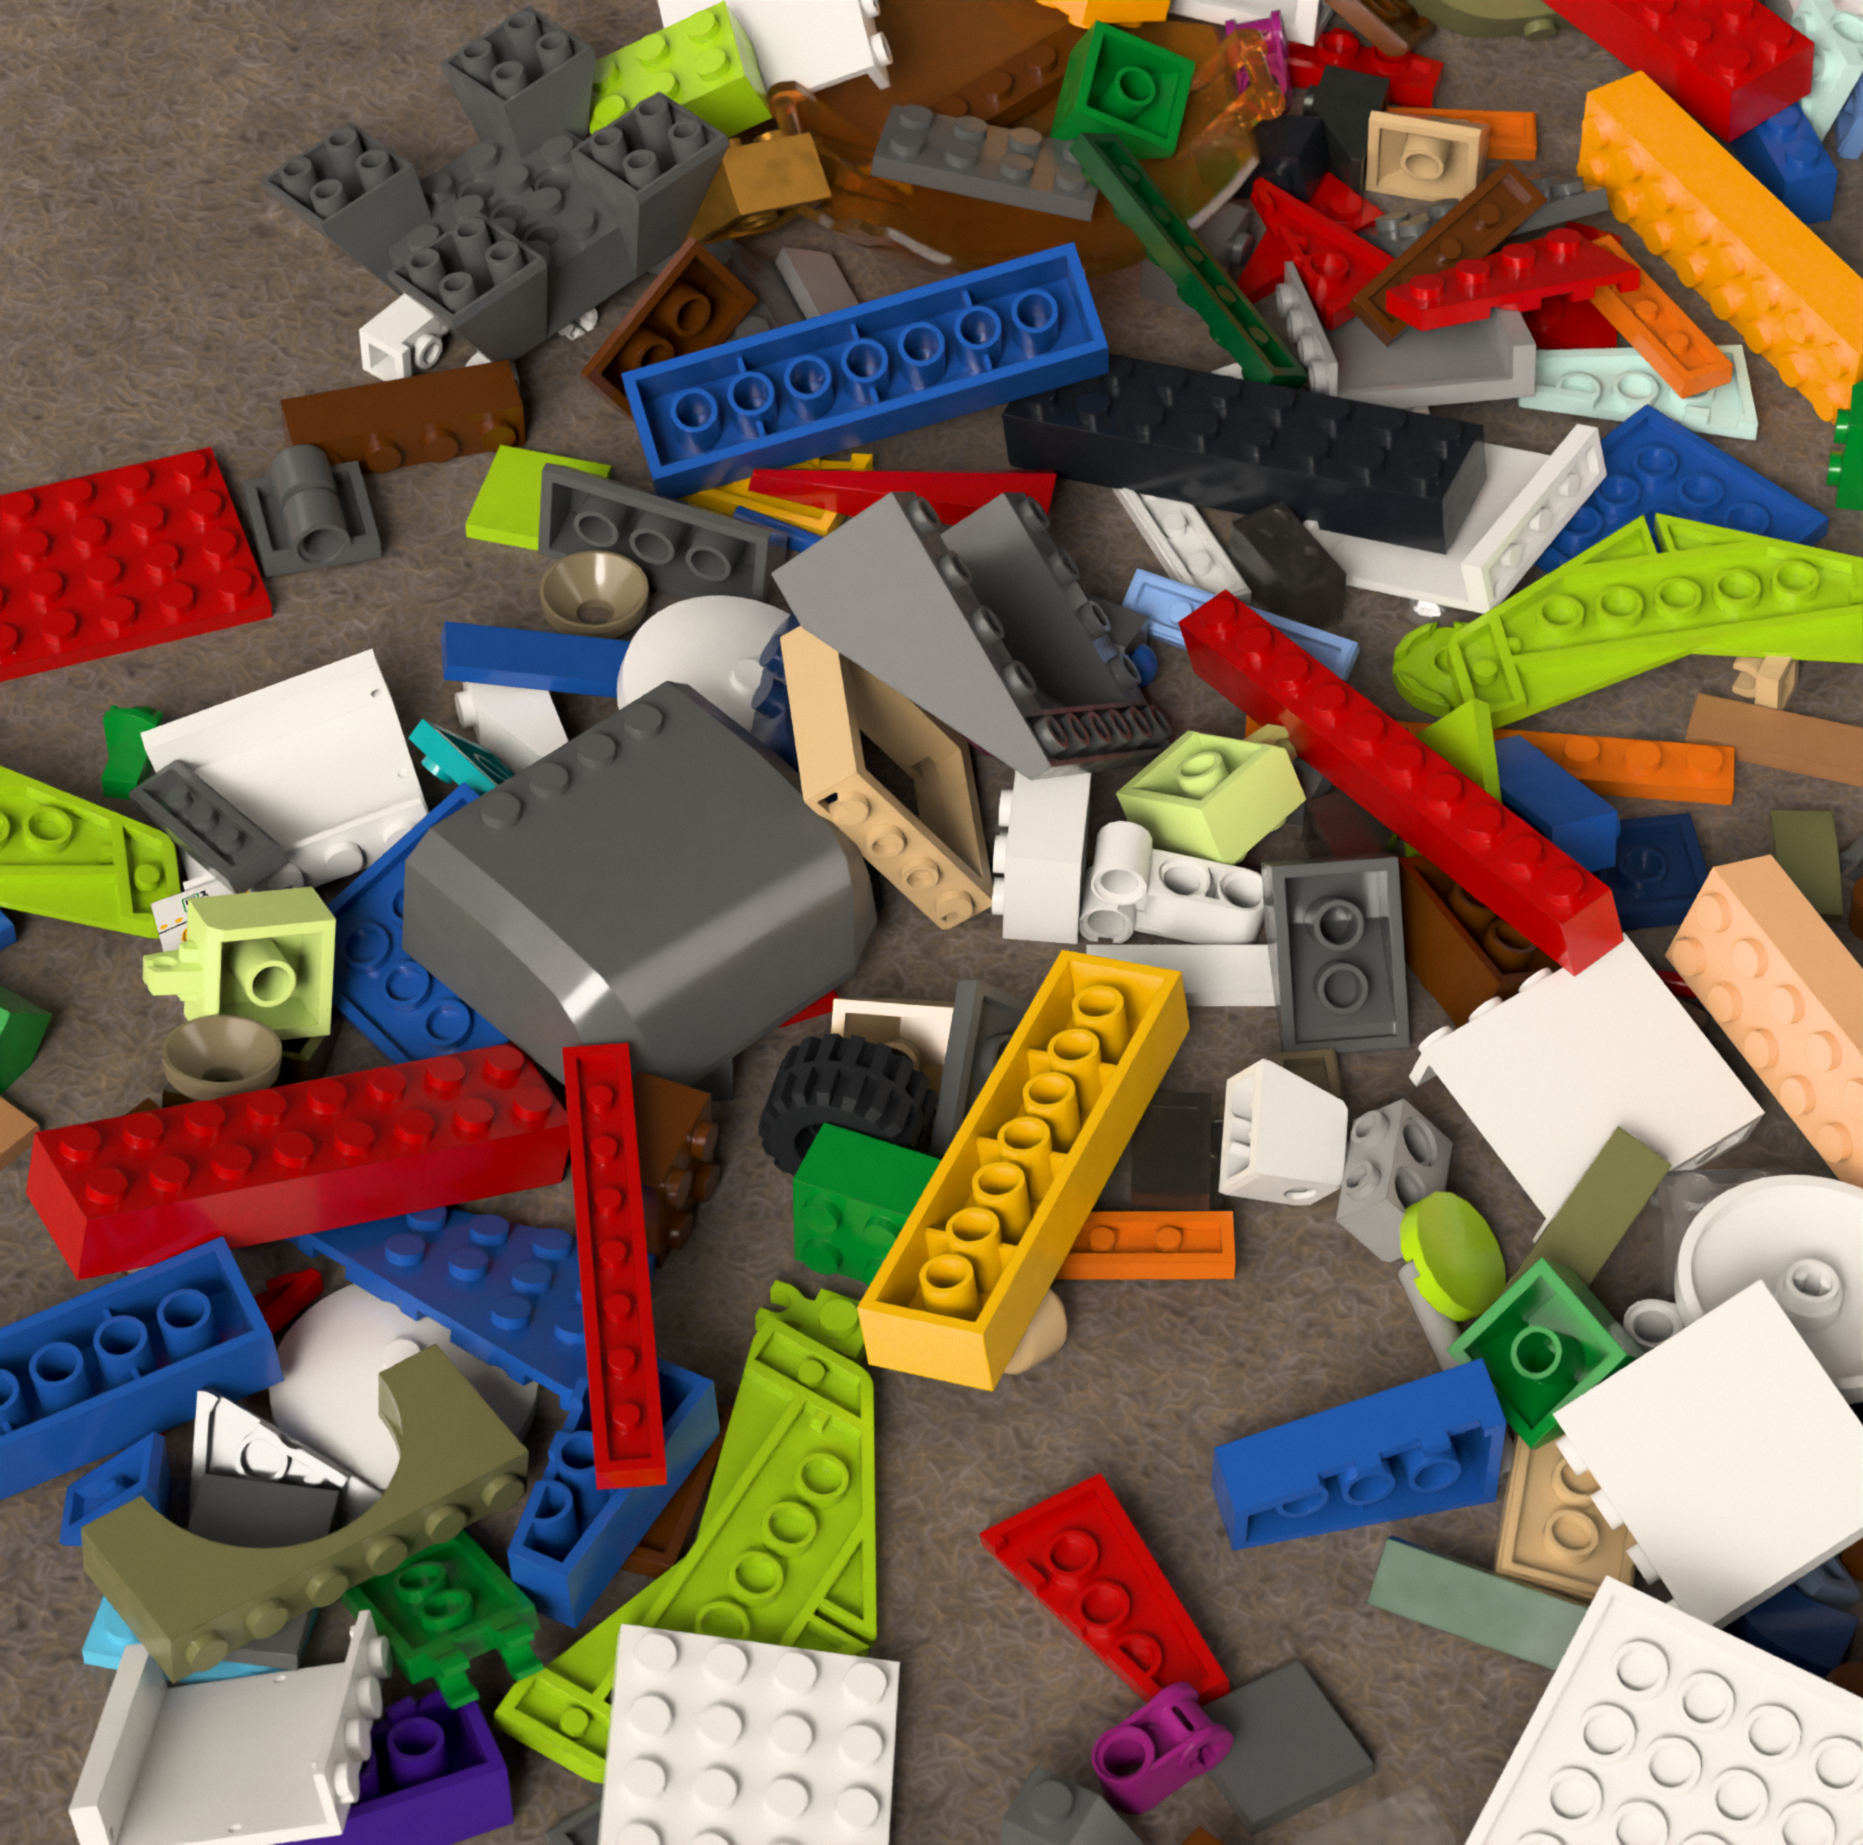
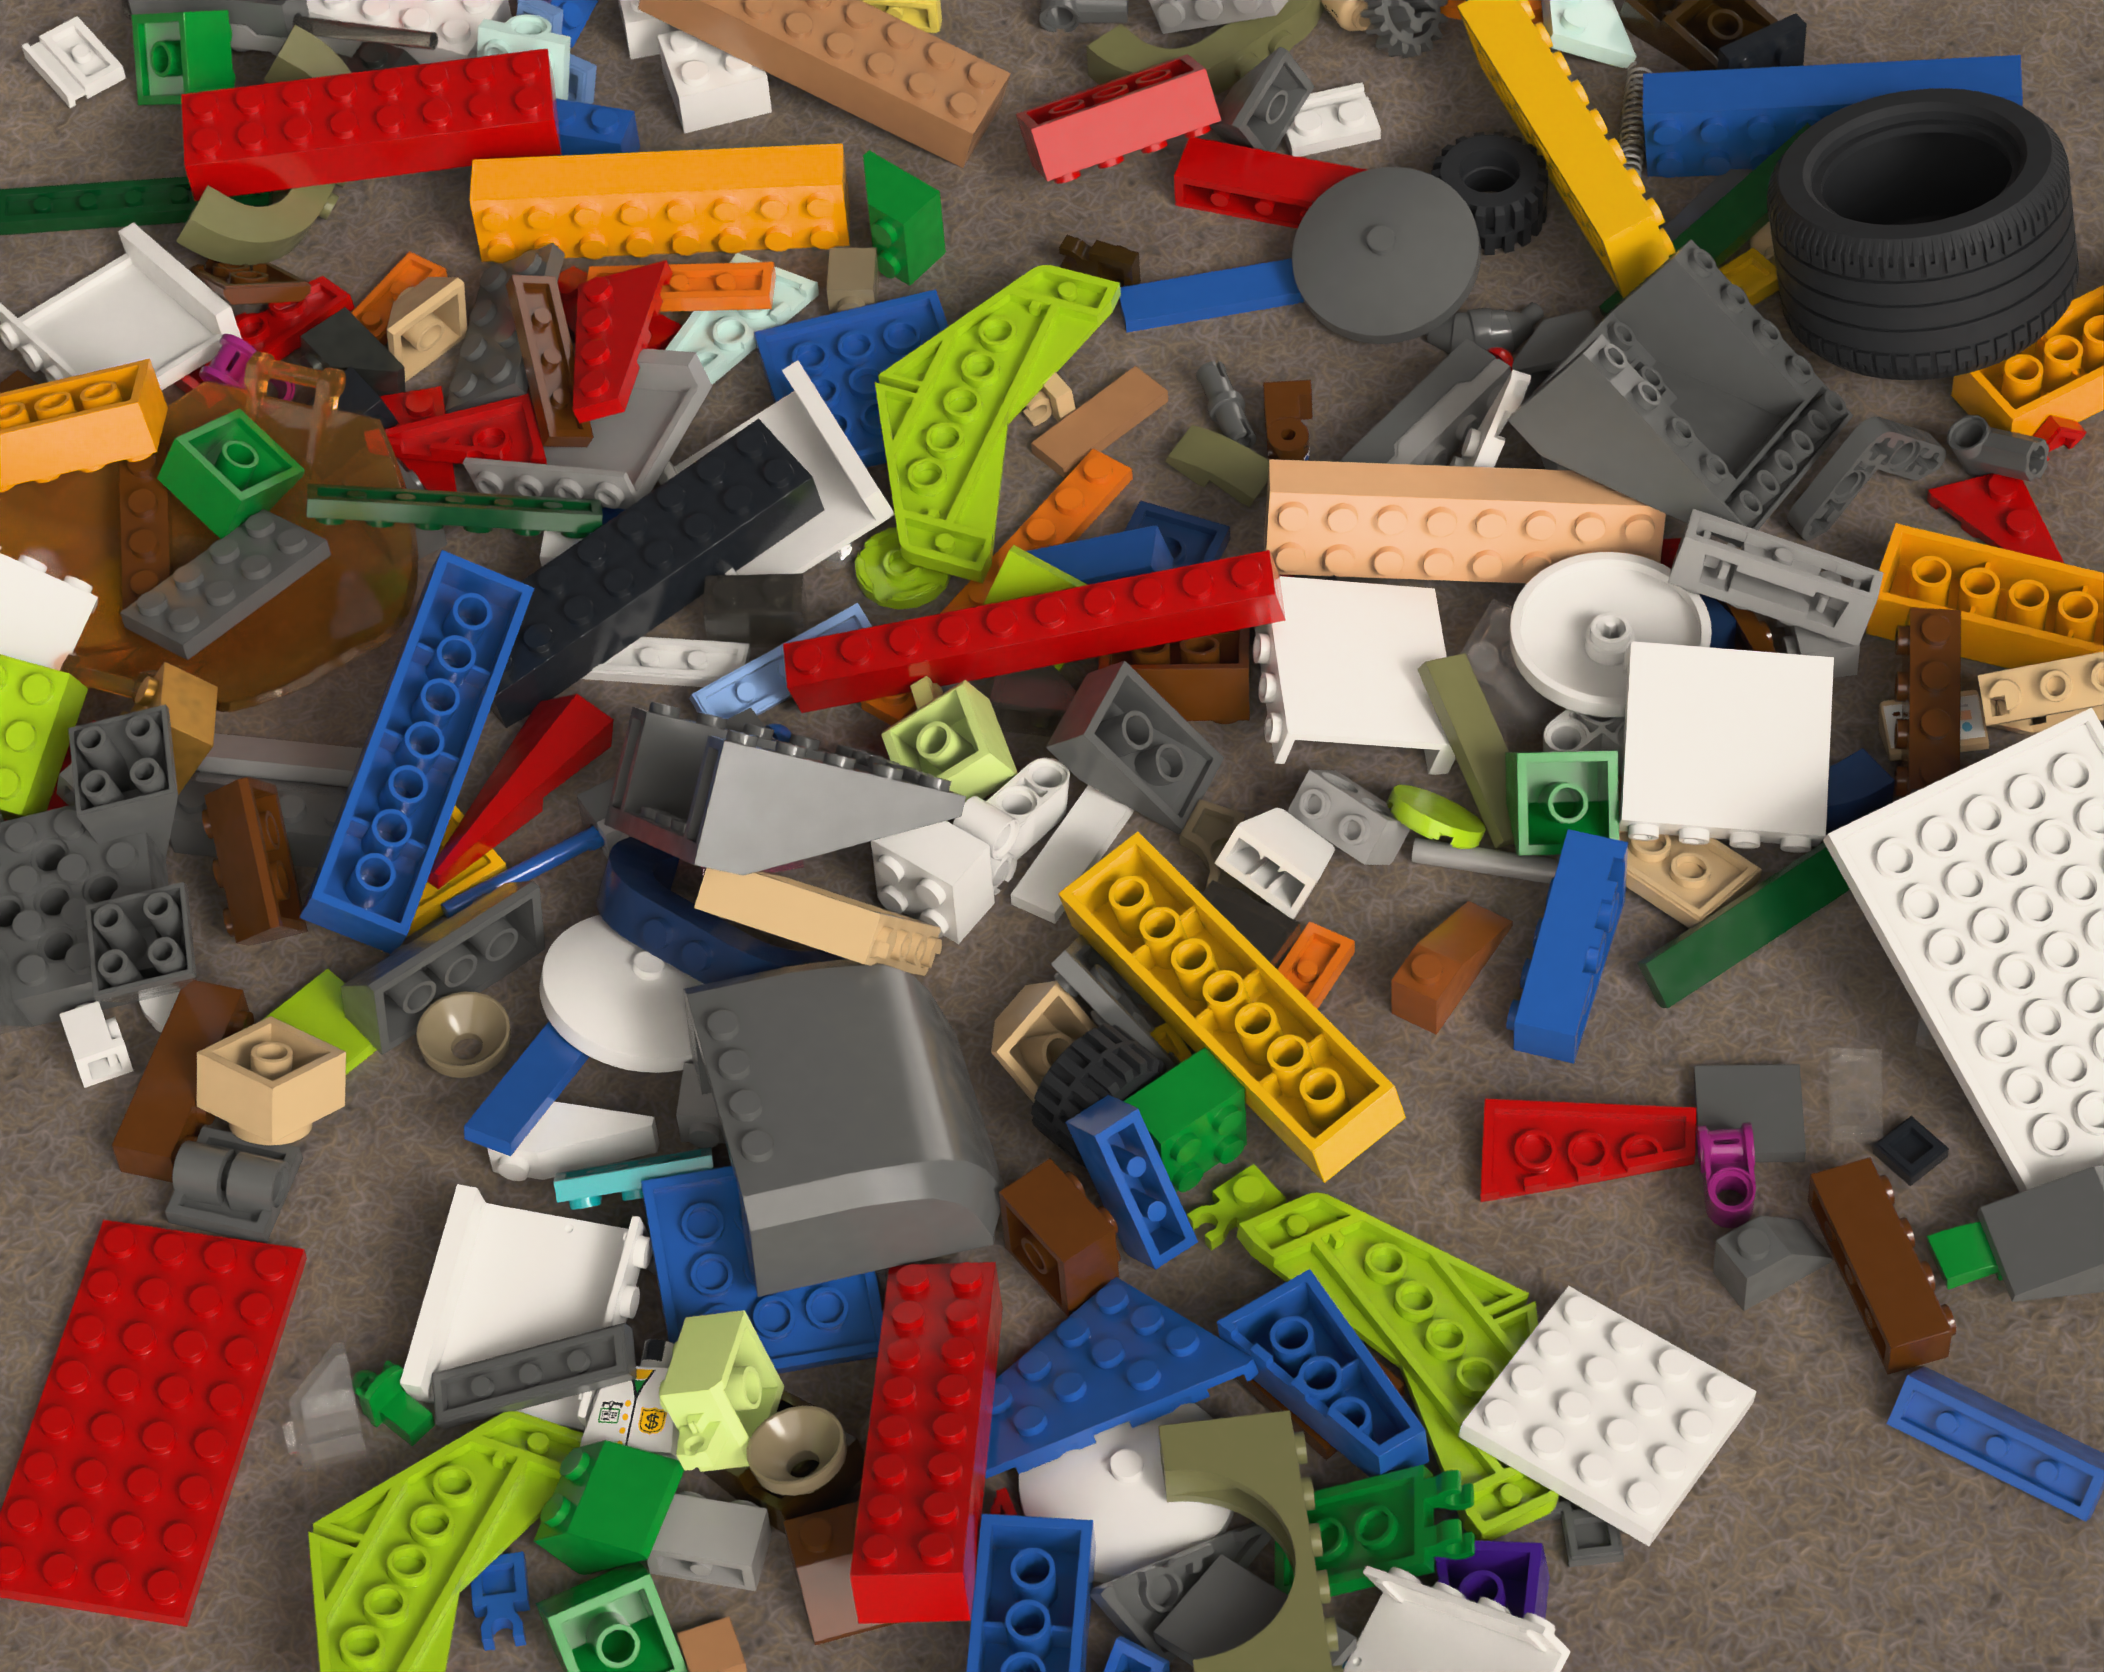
camera: 55 degrees left, 5 degrees up
(70, 704) = (326, 1414): none -> clear slope
(87, 950) = (607, 1506): none -> green slope
(113, 1054) = (712, 1541): none -> light grey brick
(423, 472) = (271, 1082): none -> tan piece
(613, 1268) = (1180, 1277): red plate -> none
(742, 1186) = (1132, 1181): none -> blue brick
(1270, 1361) = (1446, 965): none -> dark orange slope
(1786, 448) = (852, 278): none -> dark tan brick

